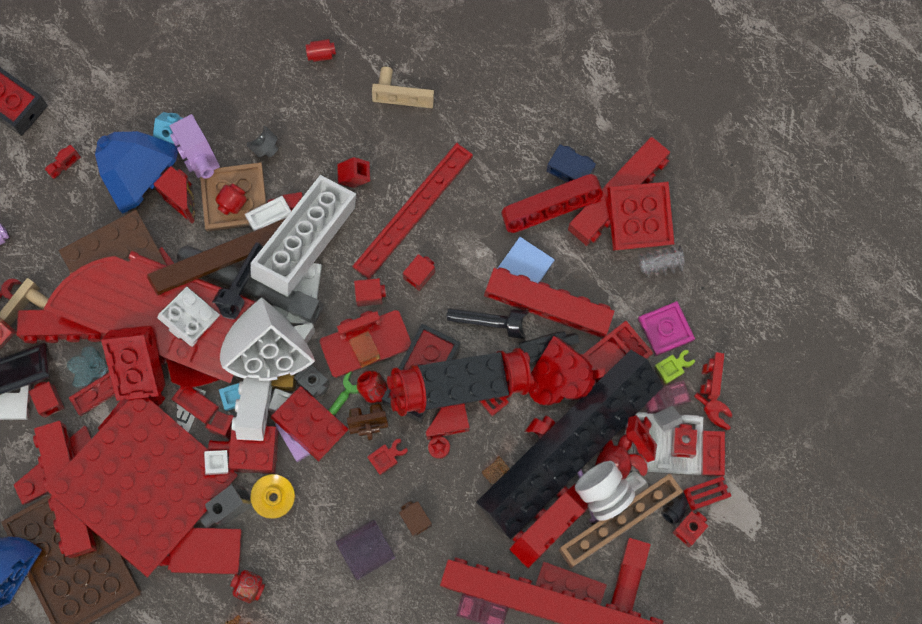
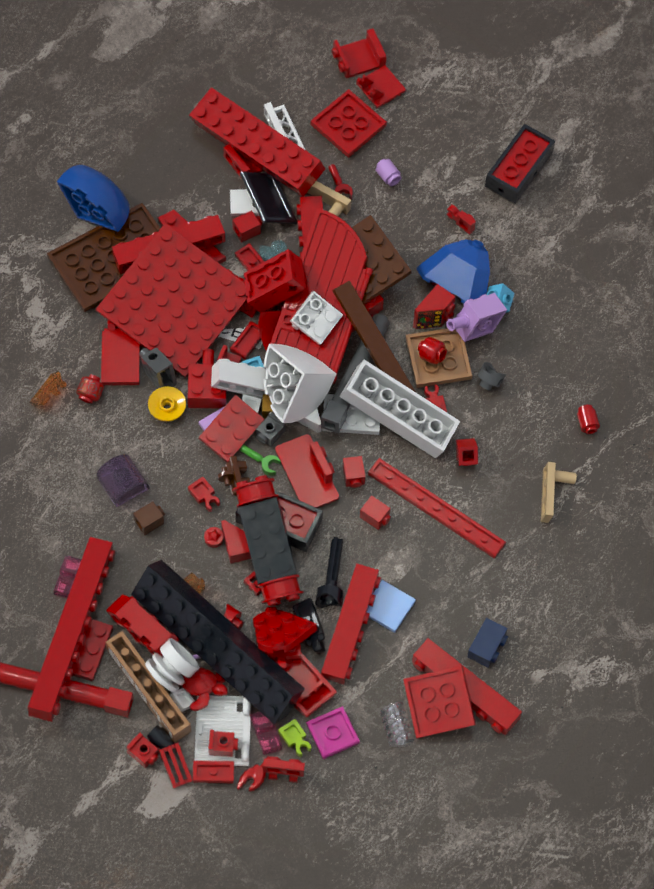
camera: 85 degrees right, 10 degrees down
(216, 462) = (193, 354): white plate -> none
(230, 298) = (332, 348): black piece -> none
(268, 213) = (422, 383): white tile -> none
(364, 349) = (298, 468): clear orange panel -> none
(371, 386) = (267, 469): red head -> none
(552, 203) = (447, 622): red beam -> none
(640, 435) = (224, 700): red plate -> none
(668, 418) = (244, 729): light grey tile -> none

